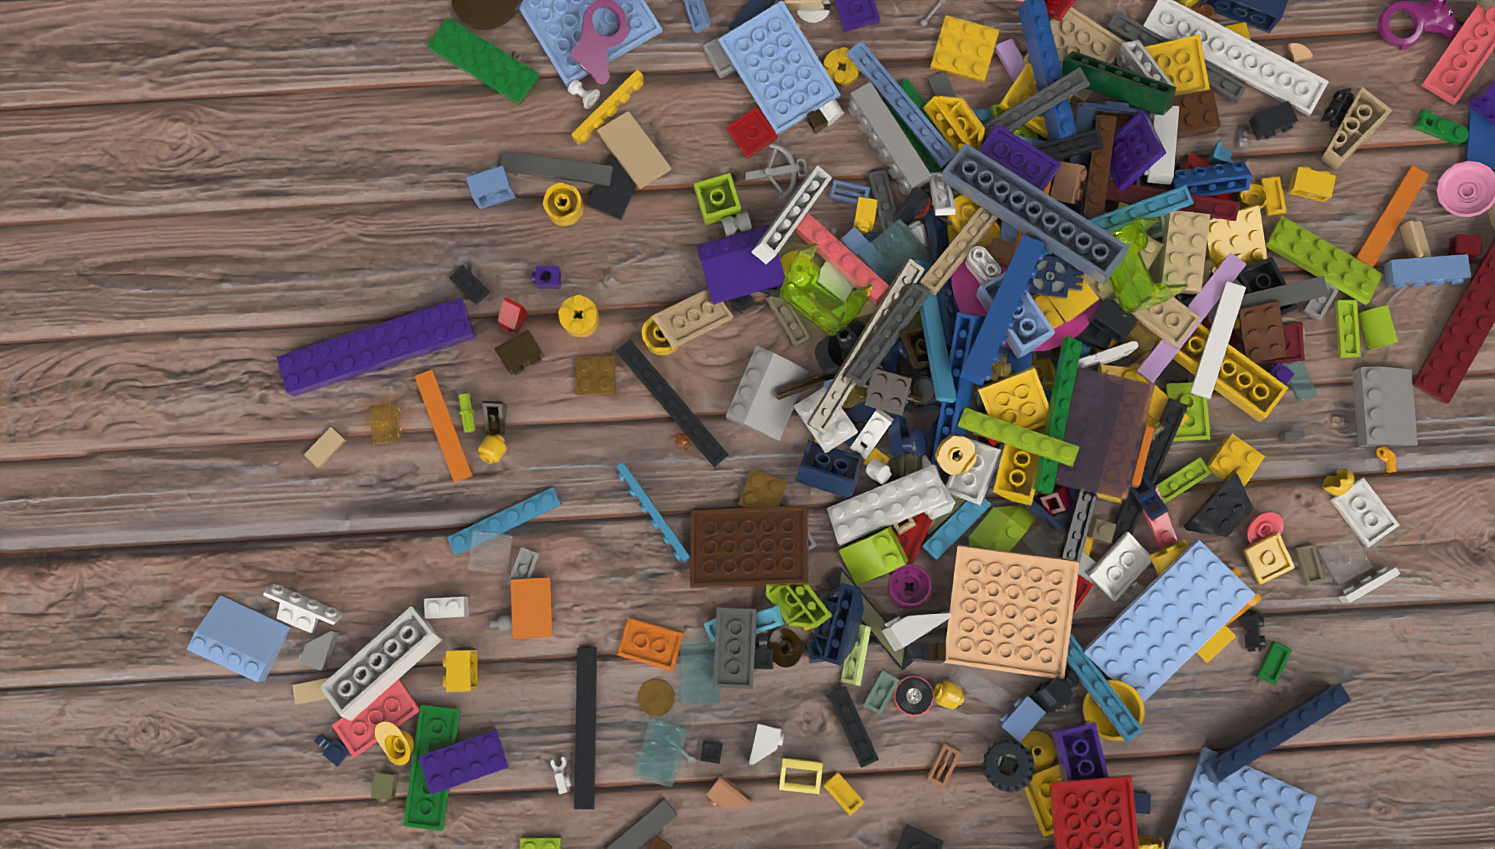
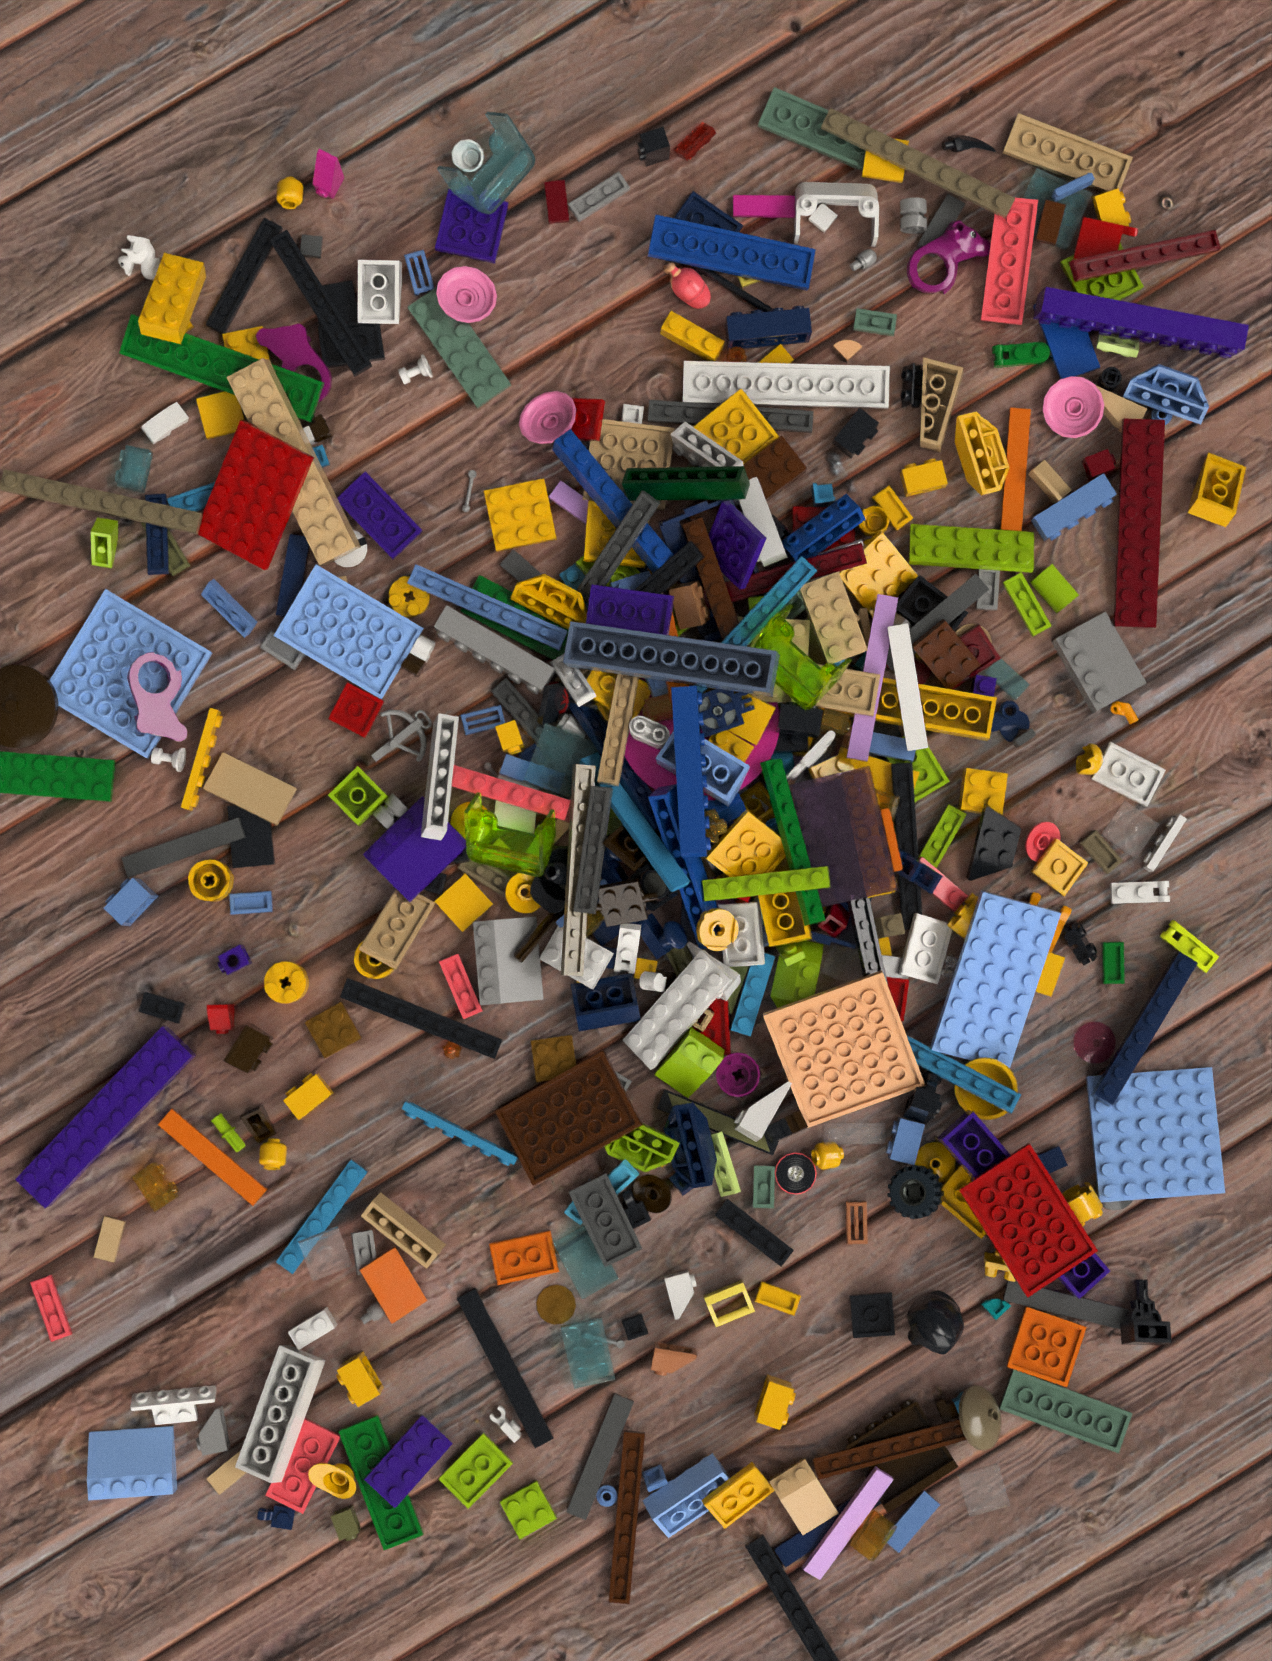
camera: 35 degrees left, 5 degrees up
(247, 478) = (51, 1308): none -> coral tile
(515, 800) = (475, 1470): none -> lime plate
(546, 417) = (307, 1096): none -> yellow brick
(564, 567) = (403, 1230): none -> tan brick
(585, 240) = (251, 902): none -> medium blue tile
(718, 394) = (460, 986): none -> coral plate
(756, 329) = (463, 902): none -> yellow tile
(802, 338) = (513, 895): none -> yellow dish
(1005, 507) = (790, 953): none -> lime plate
(1097, 15) = (632, 413): none -> white tile
(1176, 385) = (890, 747): none -> medium blue tile
(1215, 719) = (1084, 1042): none -> clear pink dish
(1284, 419) = (1009, 724): none -> dark blue plate
(1326, 615) = (1138, 892): none -> white plate
(1333, 42) = (875, 322): none -> sand green plate
(1349, 682) = (1190, 946): none -> neon yellow plate
(1370, 186) = (981, 453): none -> yellow wedge

